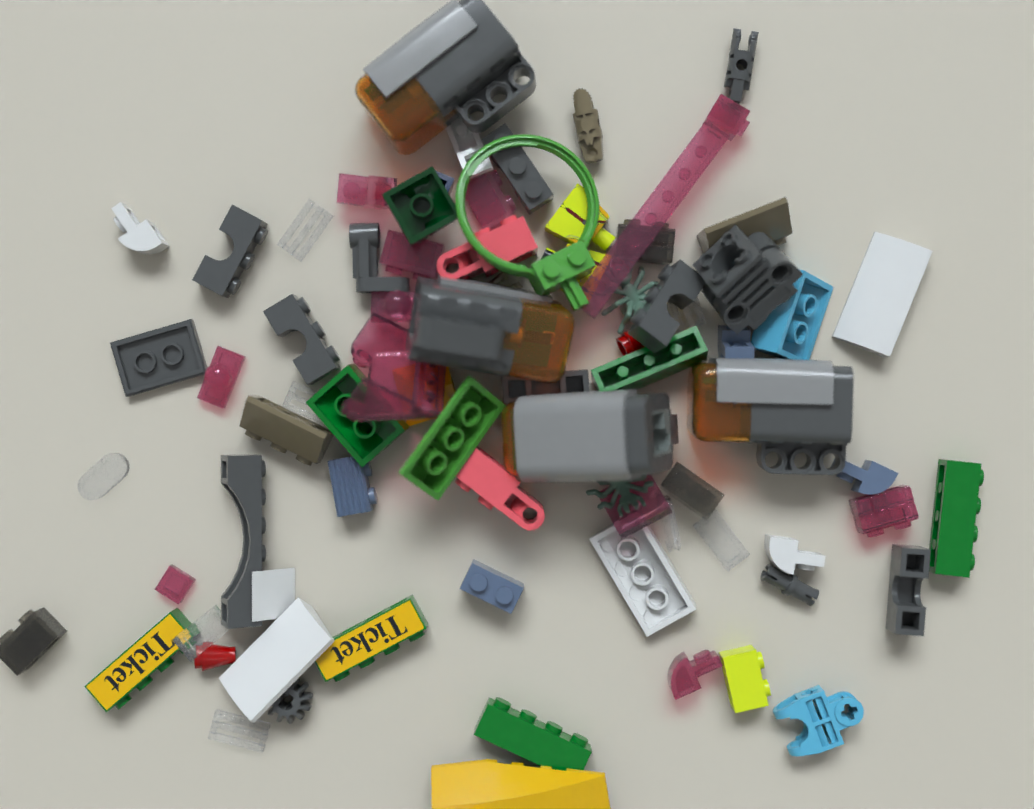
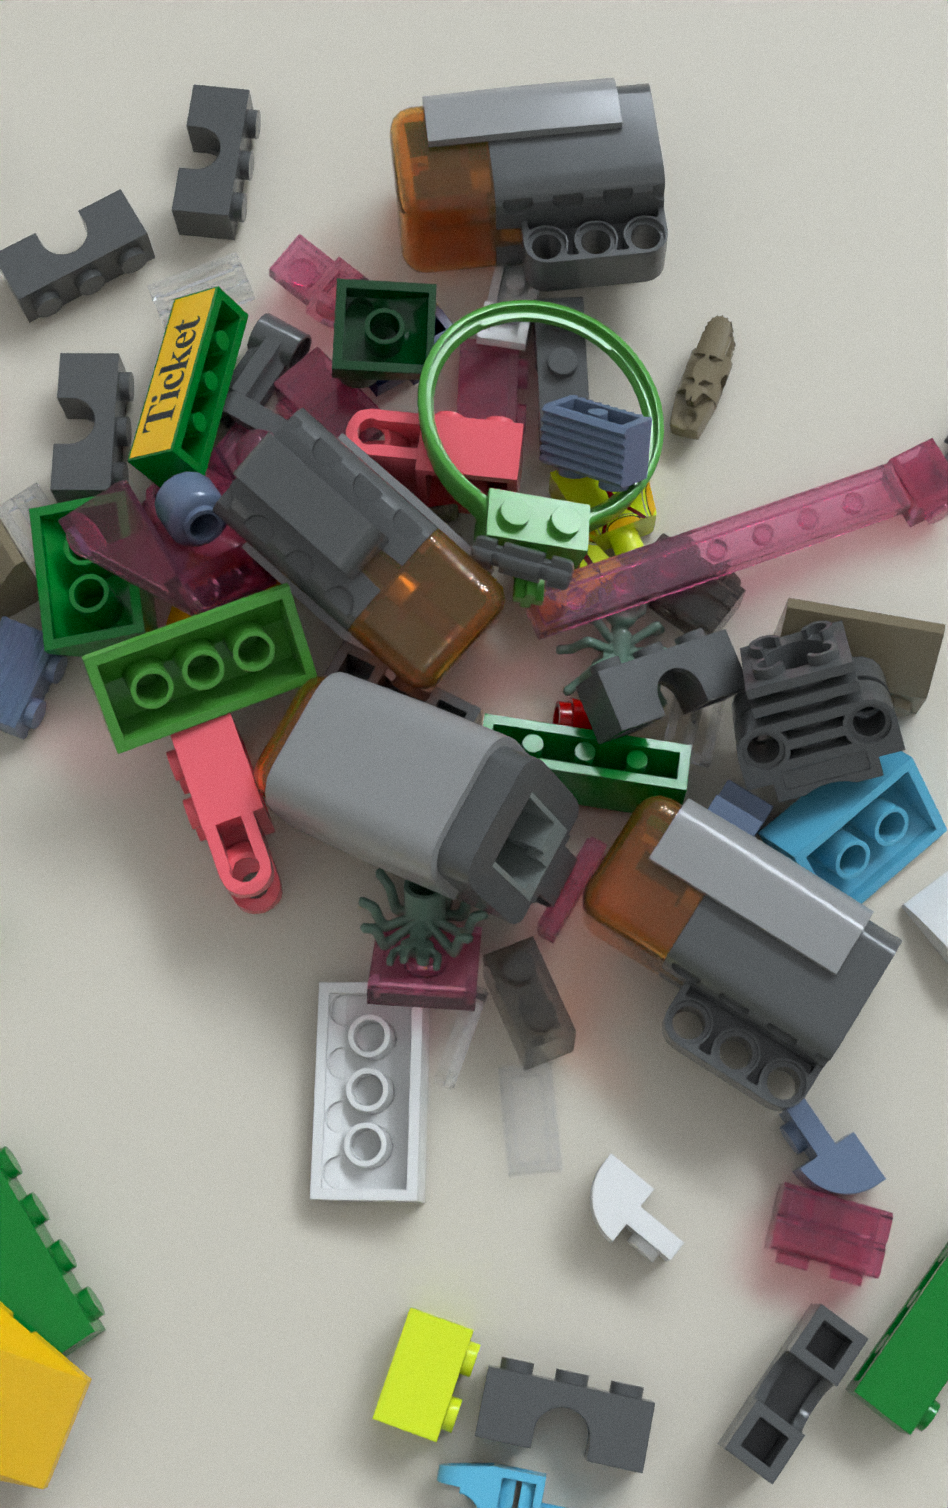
camera: 35 degrees right, 15 degrees down
(257, 132) = (212, 198): none -> dark grey arch
(339, 290) = (188, 386): none -> brick
(385, 354) = (186, 509): none -> sand blue head
(492, 586) = (118, 961): sand blue brick -> none
(563, 203) = (595, 442): none -> sand blue brick
(570, 292) = (523, 562): none -> dark grey axle
(677, 406) = (555, 918): none -> clear pink tile
(684, 673) = (330, 1300): clear pink brick -> none
(789, 584) = (597, 1263): dark grey pin -> none
(791, 663) = (615, 1419): none -> dark grey arch

